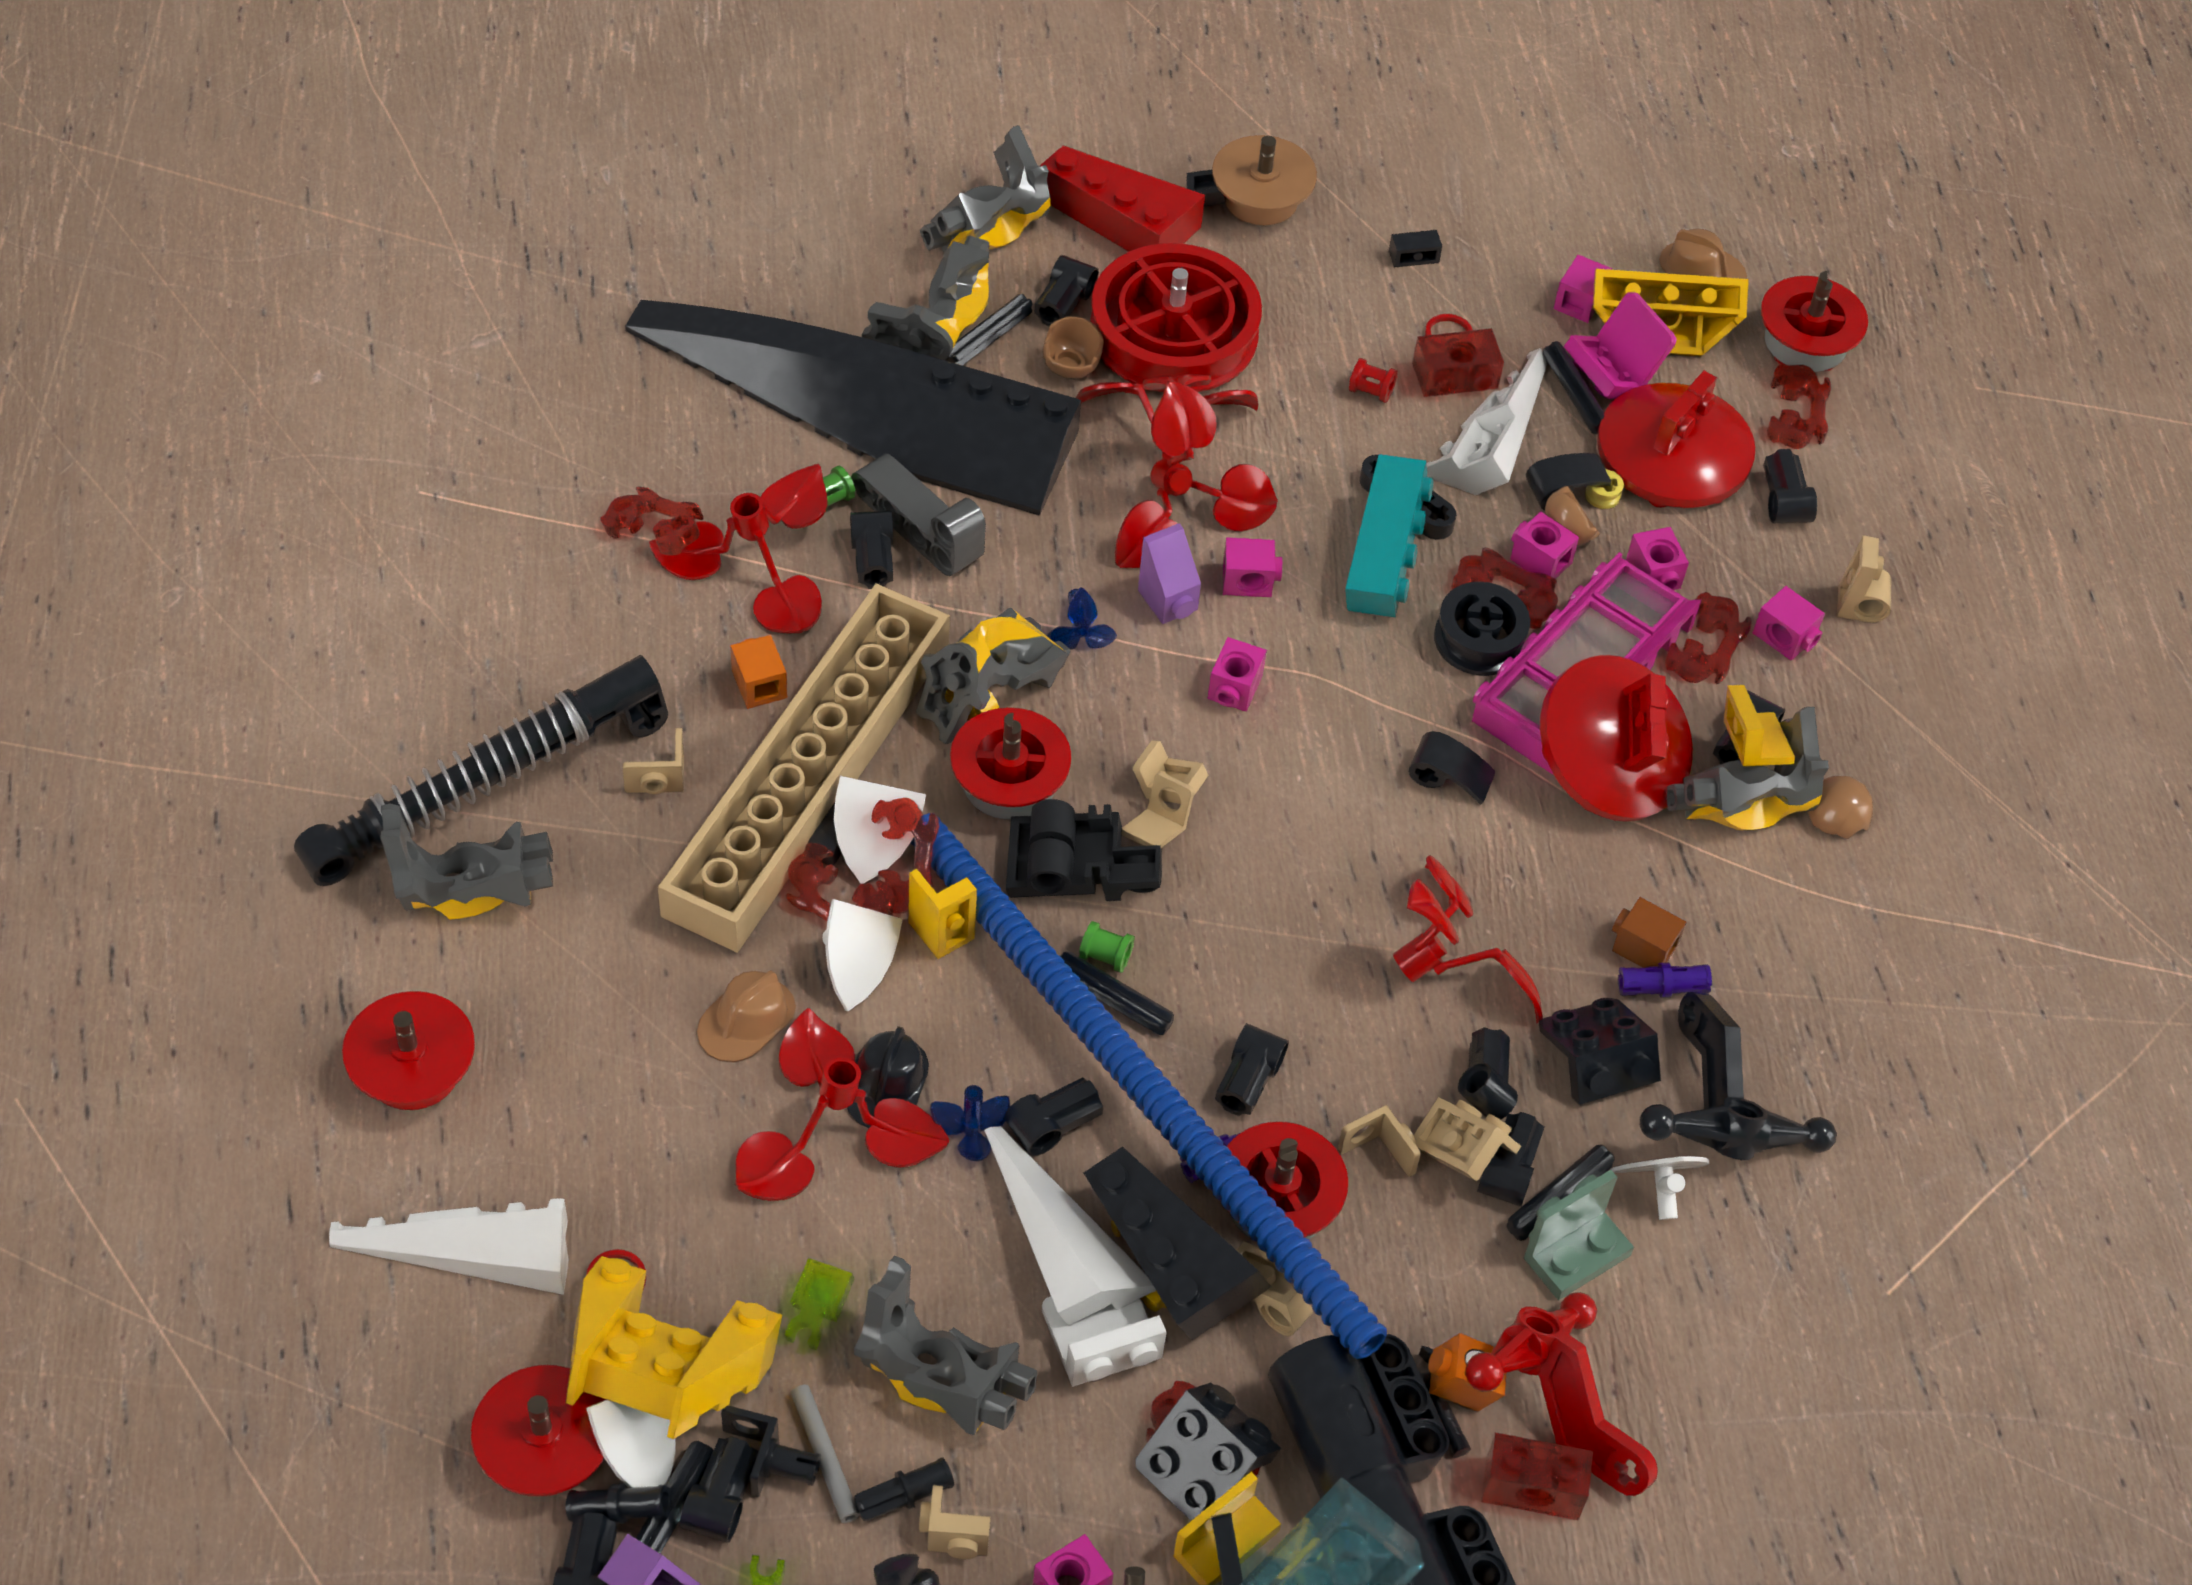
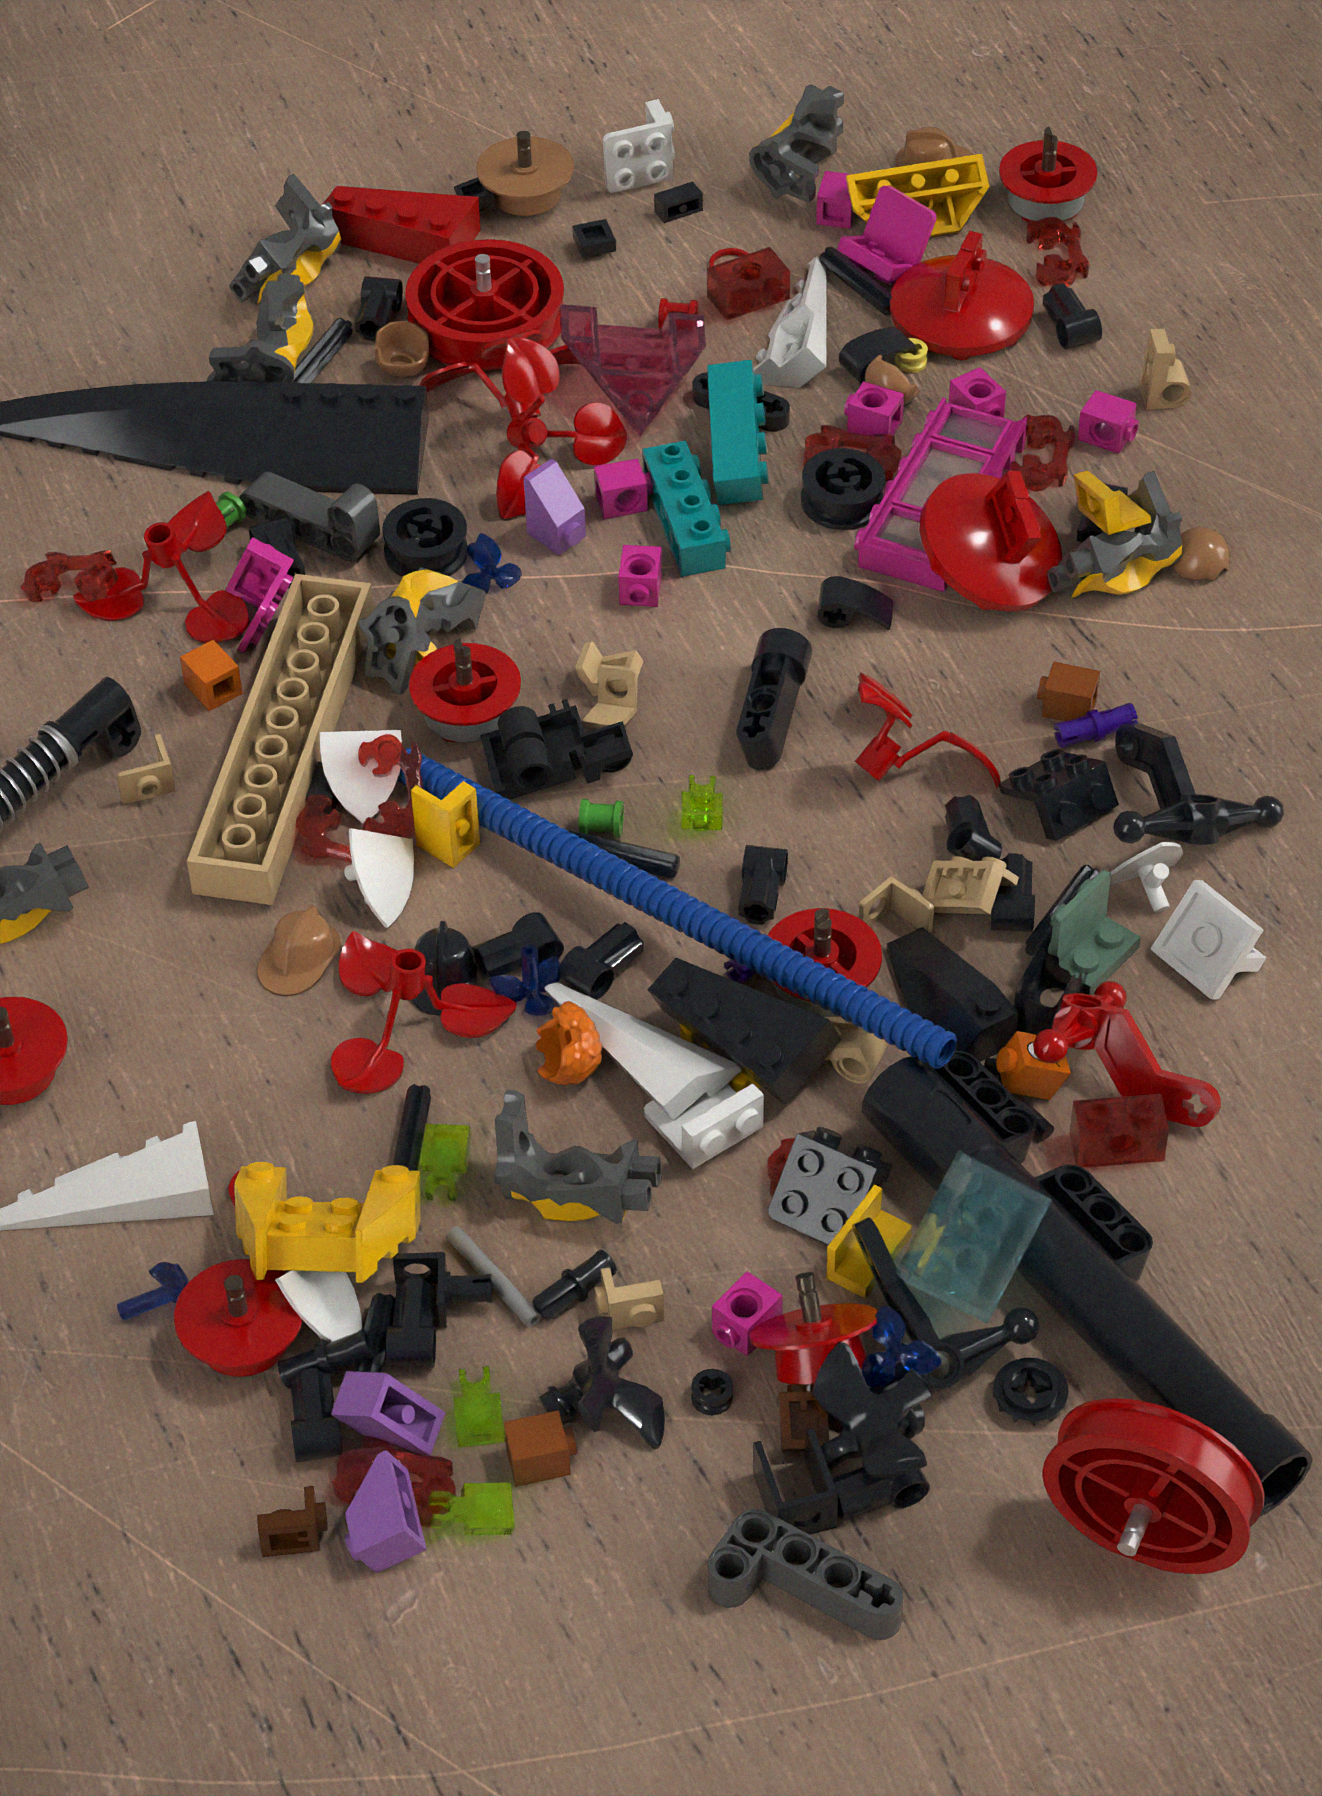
camera: 10 degrees left, 5 degrees down
(485, 1371) = (173, 1282): none -> clear blue plant
(793, 1259) = (412, 1127): none -> black axle
(843, 579) = (258, 581): none -> dark pink bracket
(986, 1209) = (569, 1045): none -> orange hair
(988, 1067) = (503, 952): none -> black piece
(1031, 557) = (426, 526): none -> black wheel
(1216, 962) = (701, 806): none -> clear neon green plate
(1305, 425) = (634, 364): none -> clear pink wedge
(1308, 608) = (685, 509): none -> teal brick
(1313, 268) = (594, 238): none -> black plate
(1329, 853) = (776, 676): none -> black beam
(1391, 185) = (640, 153): none -> white bracket
(1404, 1264) = (952, 994): none -> black wedge
(1512, 1263) = (1039, 976): none -> black piece
(1559, 214) = (799, 144): none -> dark grey hips
(1704, 1277) = (1209, 940): none -> white bracket

